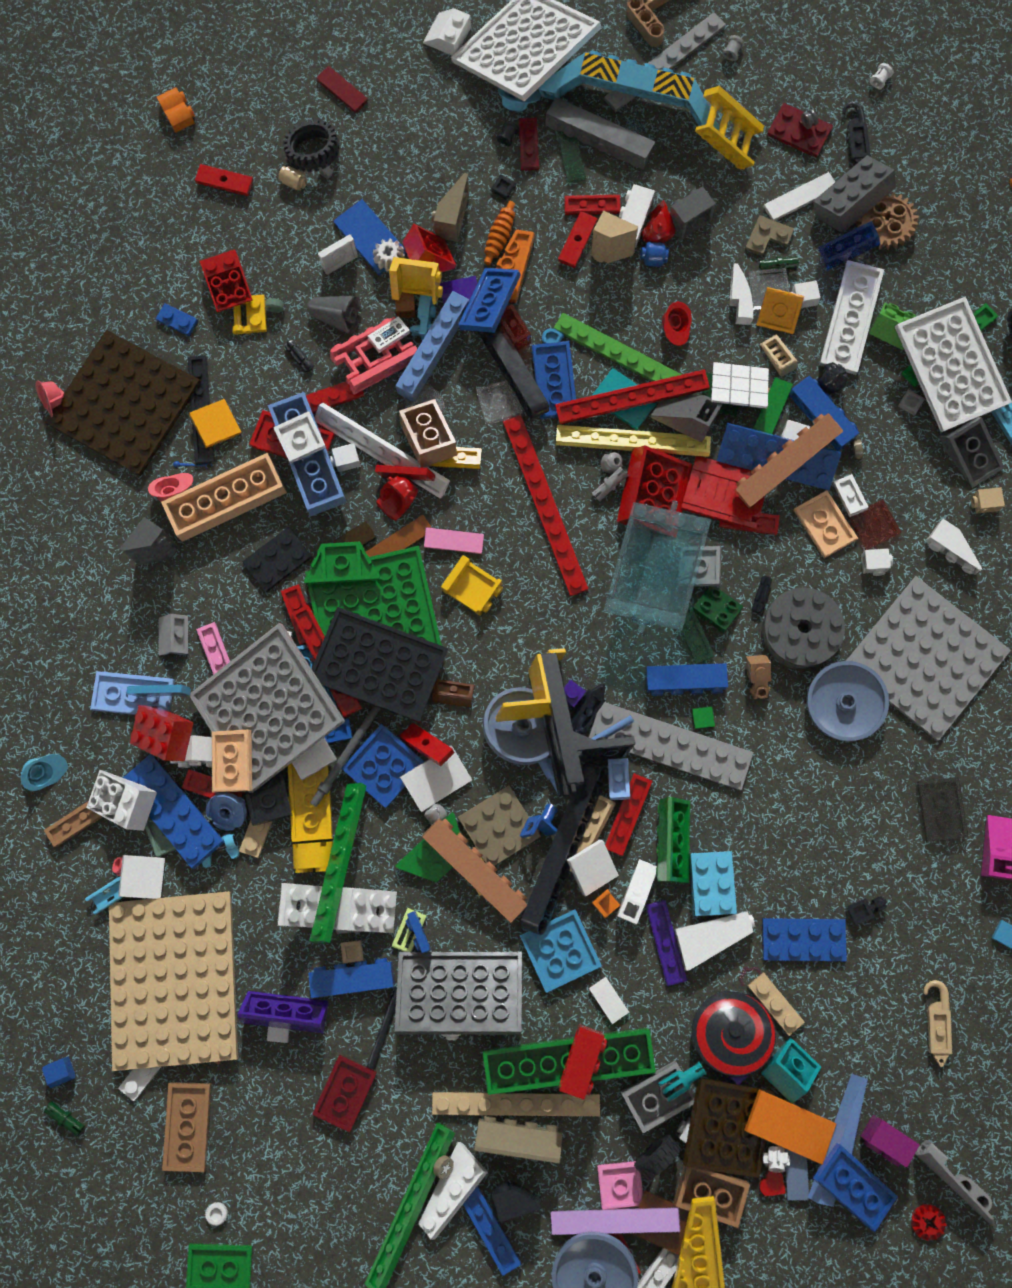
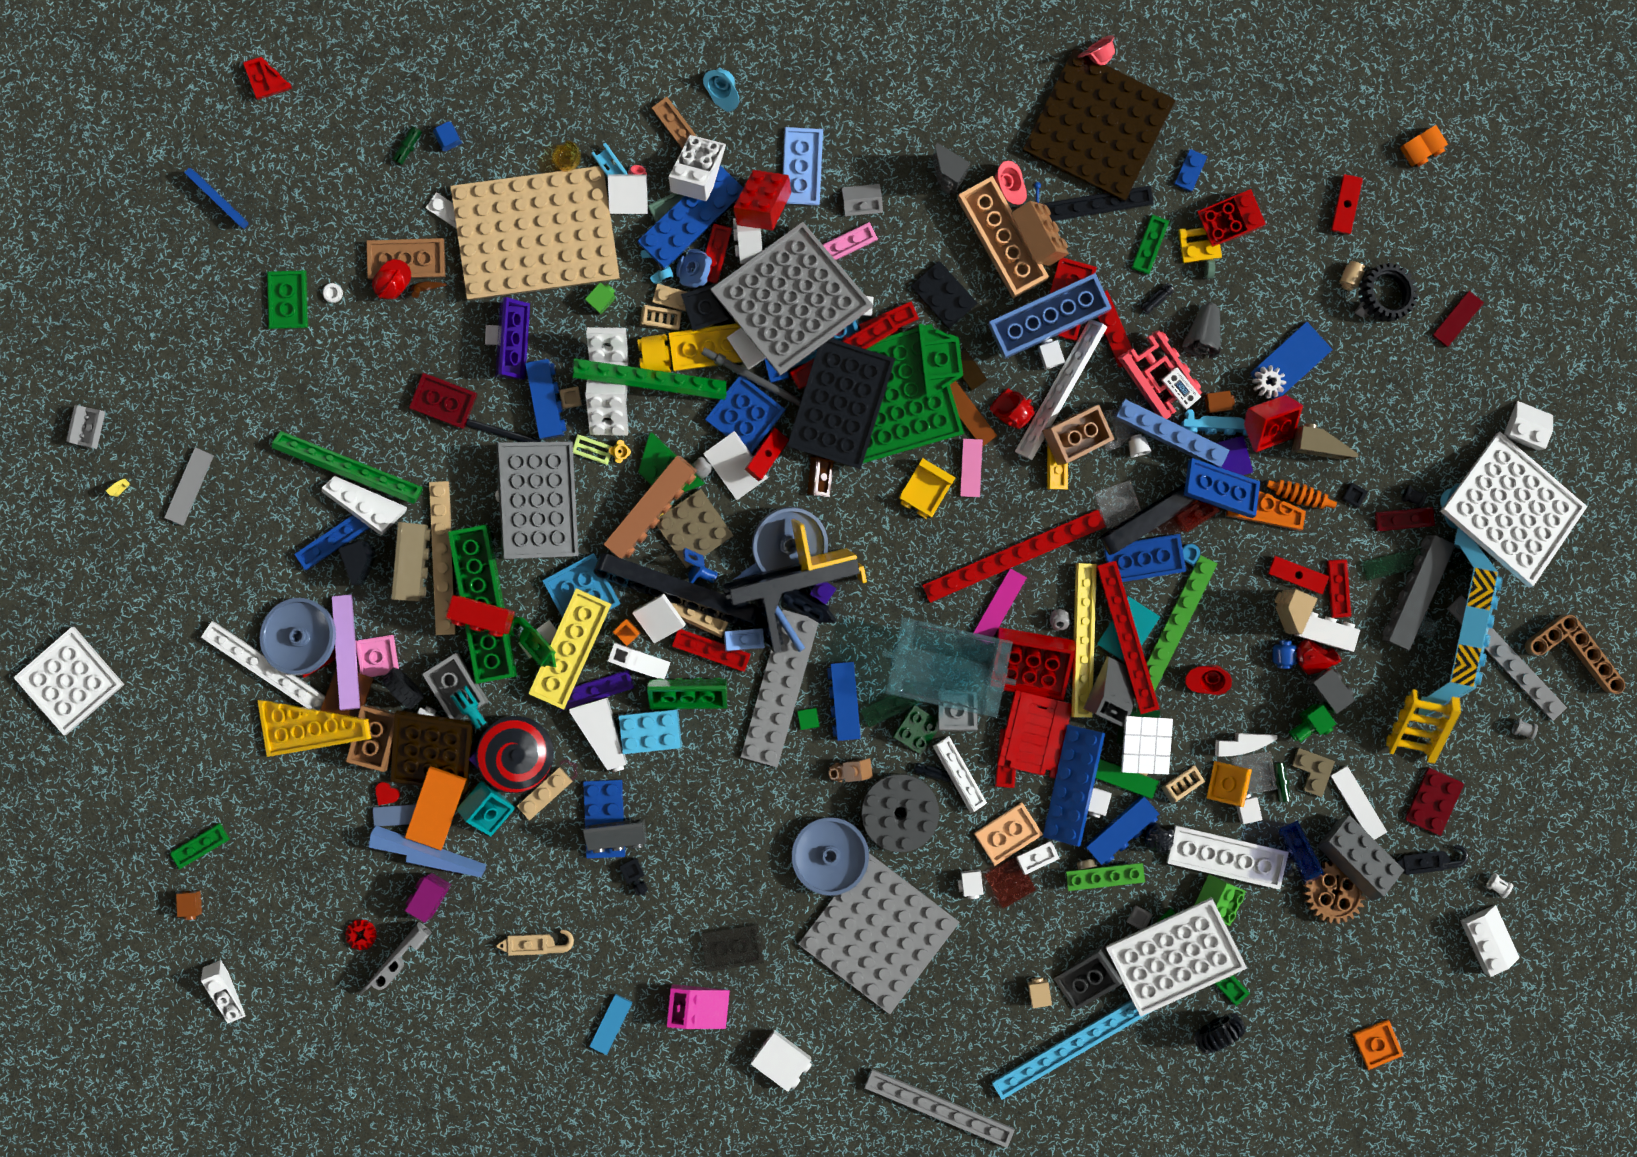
camera: 80 degrees right, 10 degrees up
(88, 938) = (567, 149): none -> clear yellow hair
(159, 690) = (804, 192): dark azure tile -> none
(207, 1144) = (391, 279): none -> red piece
(215, 423) = (1080, 220): light orange tile -> none
(219, 1112) = (425, 286): none -> reddish brown bar
(222, 458) = (1040, 233): none -> medium nougat brick
(232, 761) = (739, 270): light nougat tile -> none
(245, 360) = (1150, 244): none -> green tile
(248, 912) = (601, 297): none -> bright green brick
(282, 852) = (643, 320): none -> tan slope
(299, 437) = (1062, 308): white plate -> none
(338, 254) = (1266, 330): white tile -> none
(410, 473) = (1036, 418): red tile -> none
(413, 895) = (625, 451): none -> yellow plate
(414, 924) = (583, 461): blue plate -> none
(415, 278) = (1239, 411): yellow panel -> none
(442, 379) = (1138, 446): none -> white hat
(443, 1167) = (383, 495): dark tan tile -> none
(592, 520) = (1000, 603): none -> dark pink tile
(609, 484) = (1037, 619): light grey pin -> none
(614, 1003) = (534, 643): none -> green plate
(621, 966) = (572, 647): none -> light yellow plate
(720, 229) = (1314, 721): none -> green brick
(764, 568) = (959, 774): none -> white tile
(776, 1159) = (407, 796): white gear -> none
(788, 460) = (1065, 793): nougat brick -> none
(809, 119) = (1442, 810): dark grey bush -> none
(823, 925) = (615, 835): none -> dark grey slope
(855, 1187) = (386, 867): blue tile -> none
(870, 430) = (1105, 876): none -> bright green piece
(935, 87) = (1490, 941): none -> white slope
(952, 543) = (994, 956): white slope -> none

